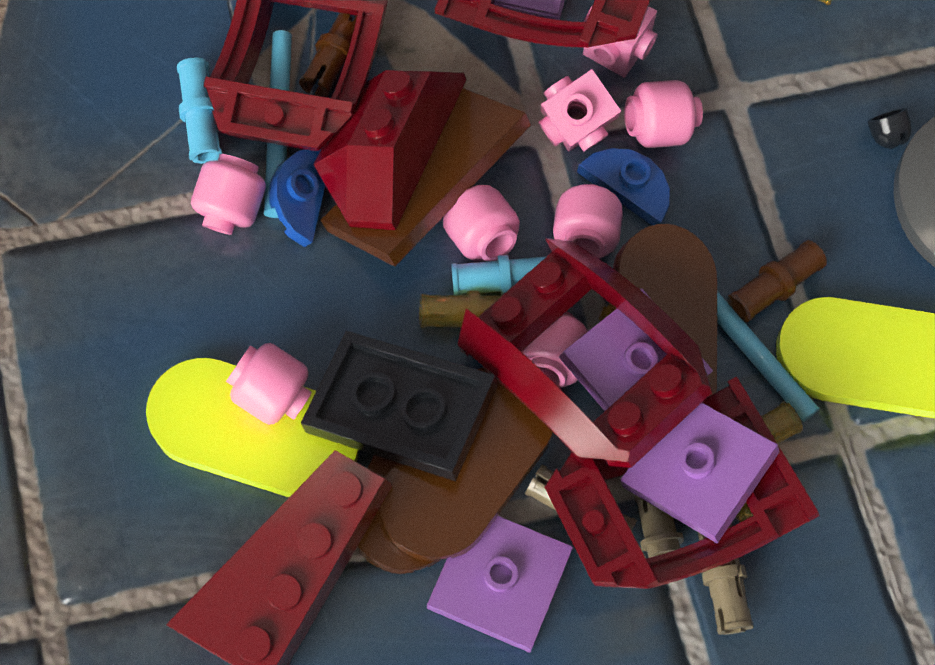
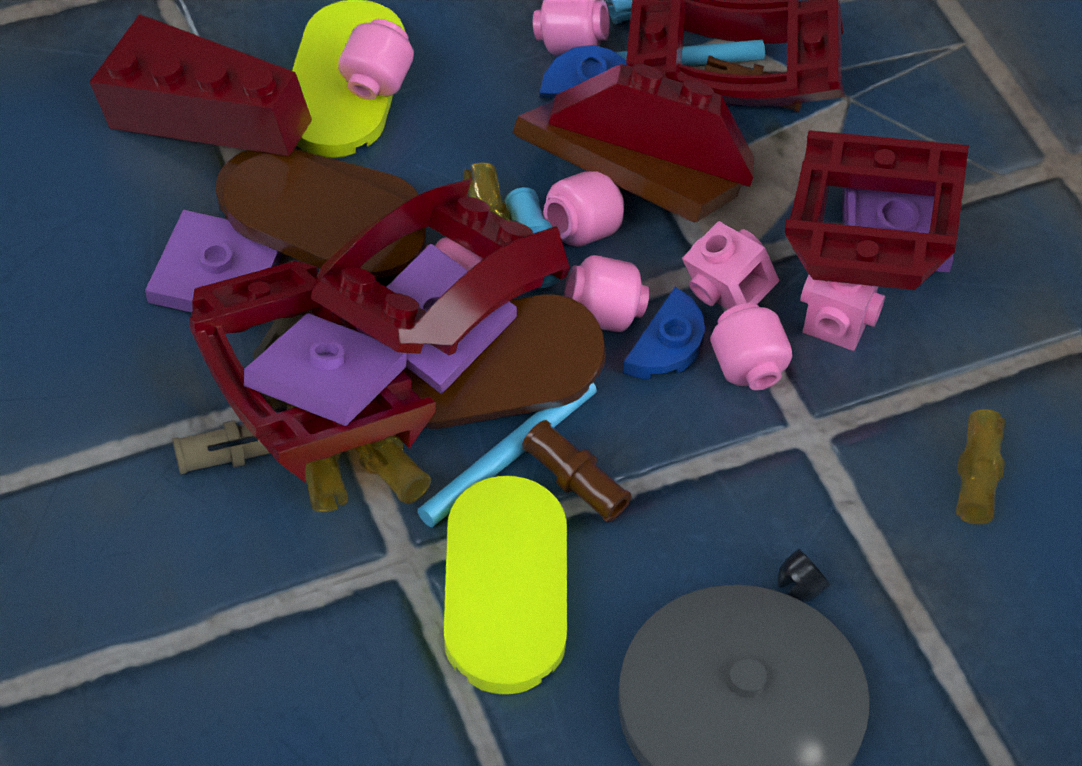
camera: 85 degrees right, 15 degrees down
(400, 405) = (366, 148): black plate -> none

